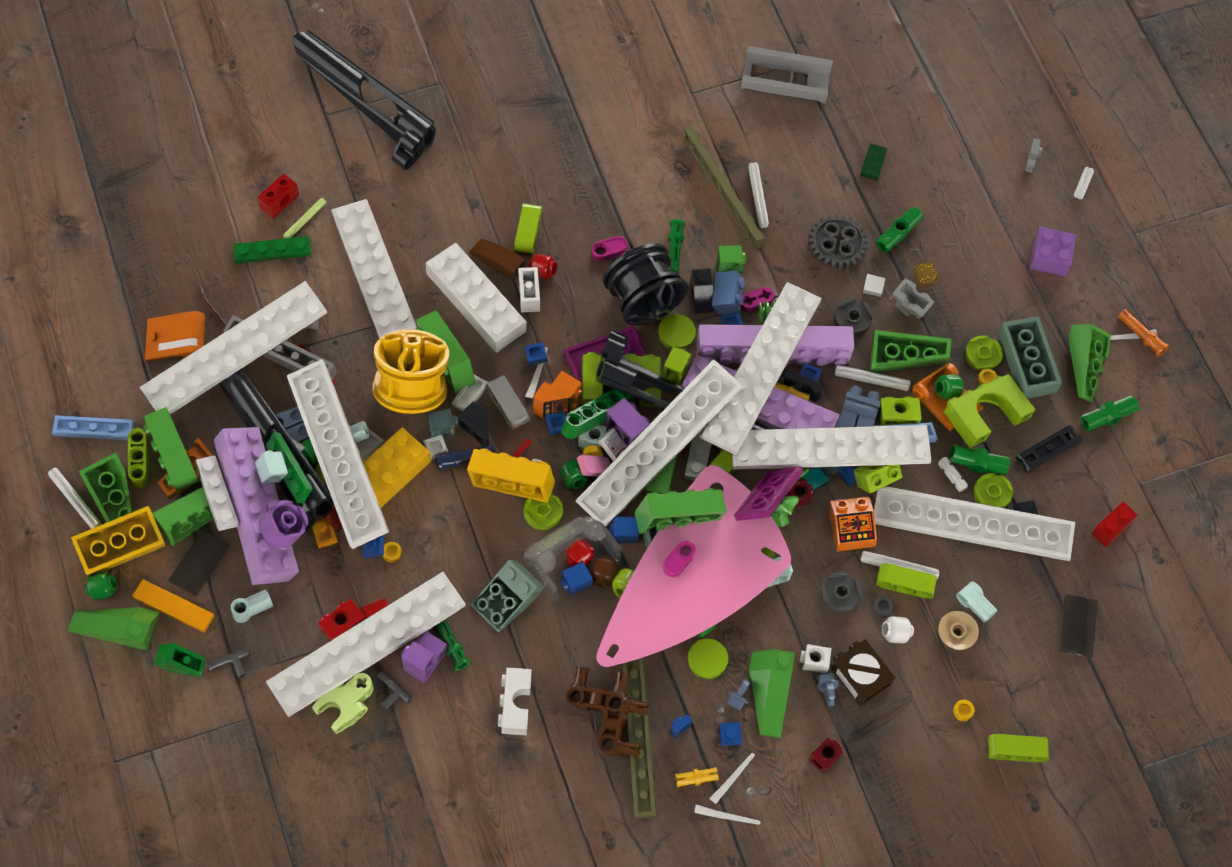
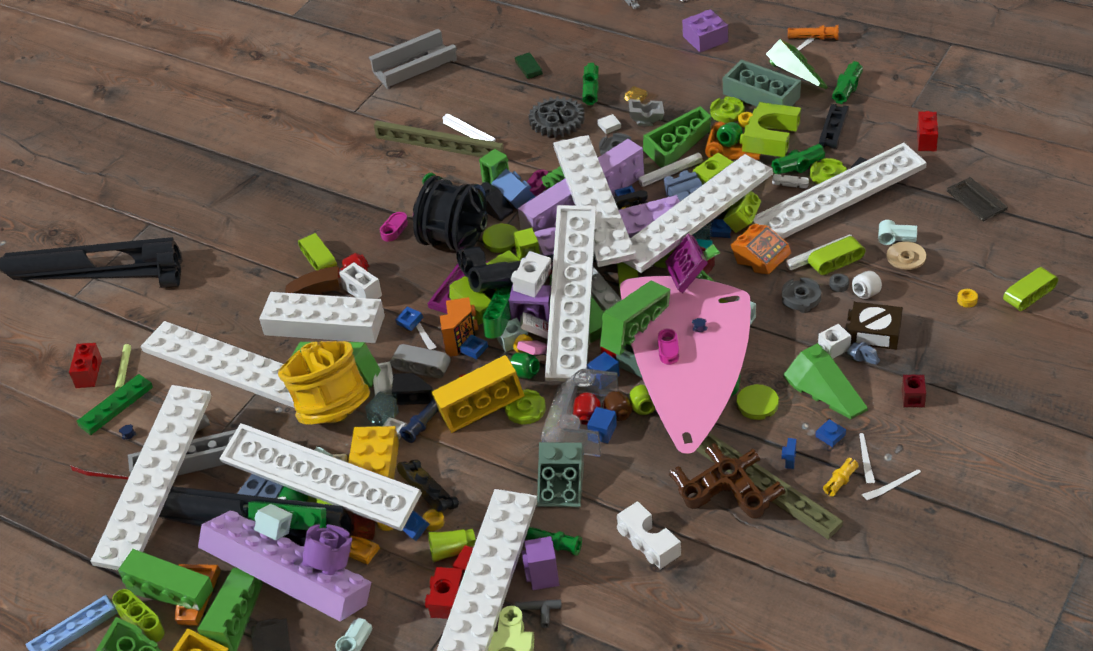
camera: 30 degrees left, 20 degrees down
(174, 335) = (84, 512): orange door -> none
(216, 493) = (241, 579): white plate -> none
(259, 284) = (127, 432): none -> dark blue piece
(380, 585) = (449, 543): none -> lime plant
(410, 520) = (430, 489): none -> black plate
(632, 412) = (531, 274): none -> white brick
(722, 559) = (699, 325): none -> dark blue piece
(736, 699) = (808, 407): sand blue piece -> none

